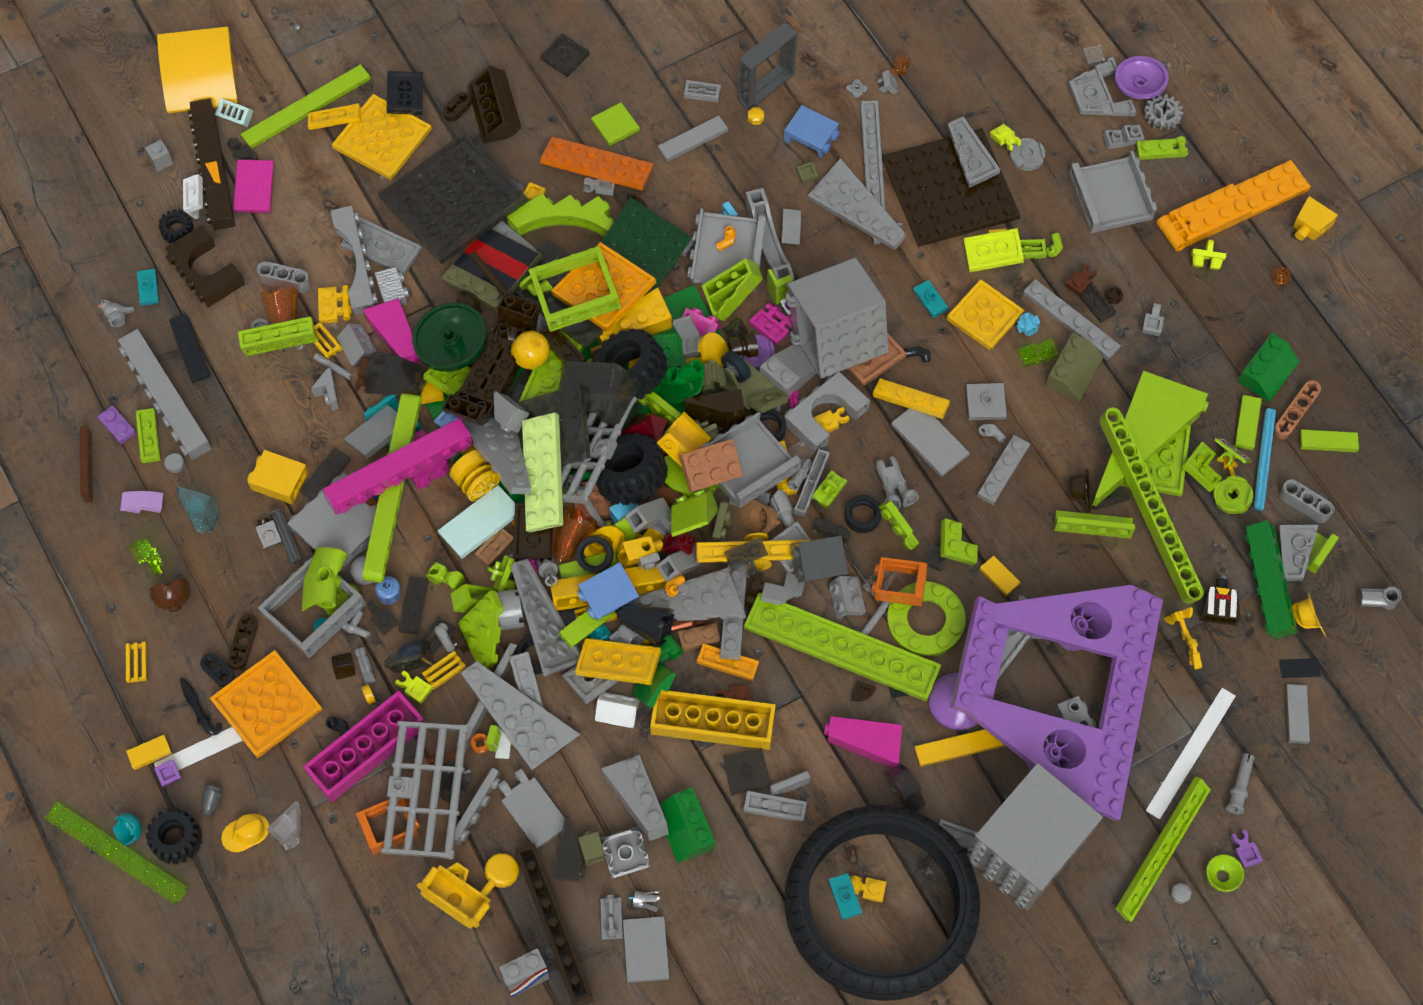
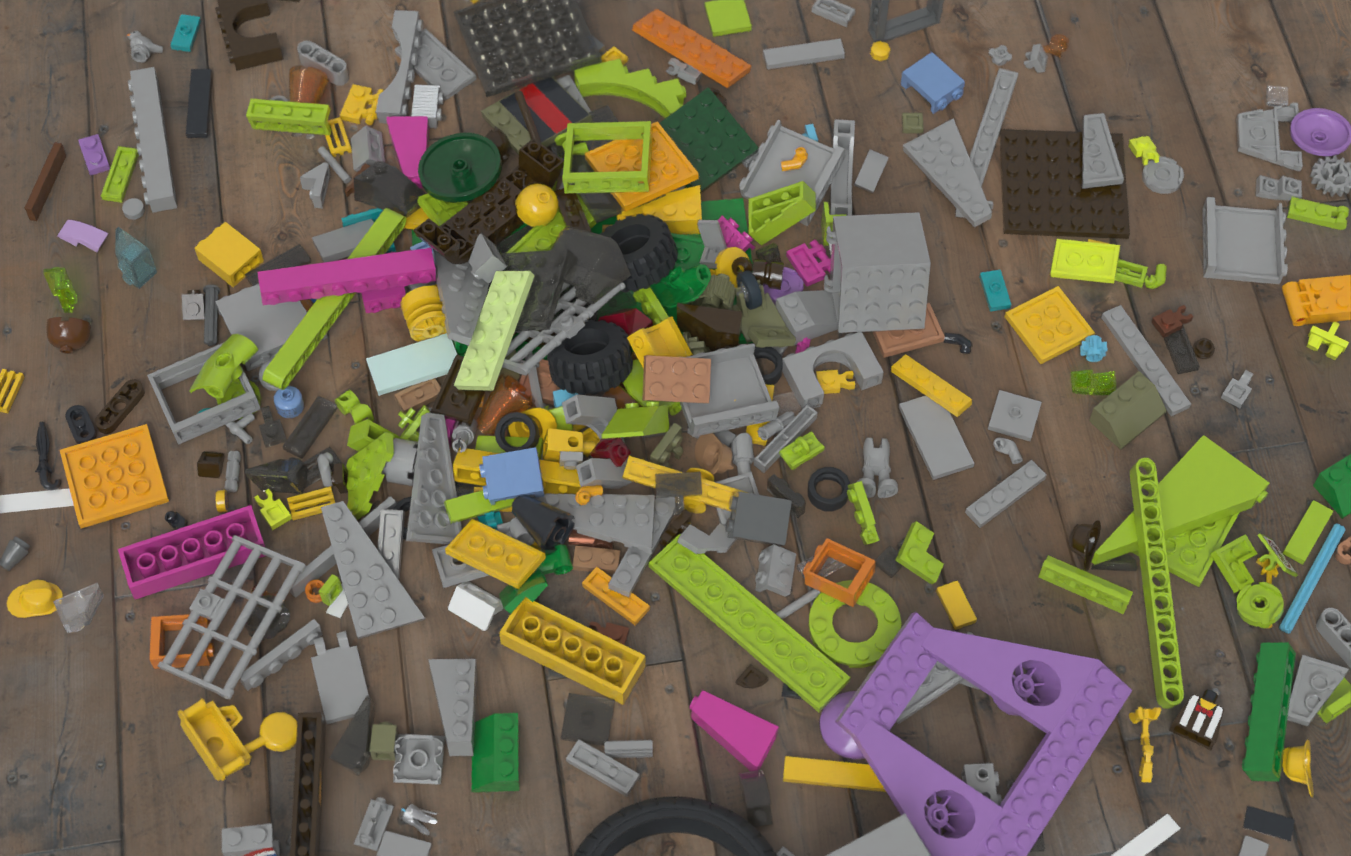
camera: 20 degrees right, 5 degrees down
(721, 344) = (744, 262): none -> dark brown plate

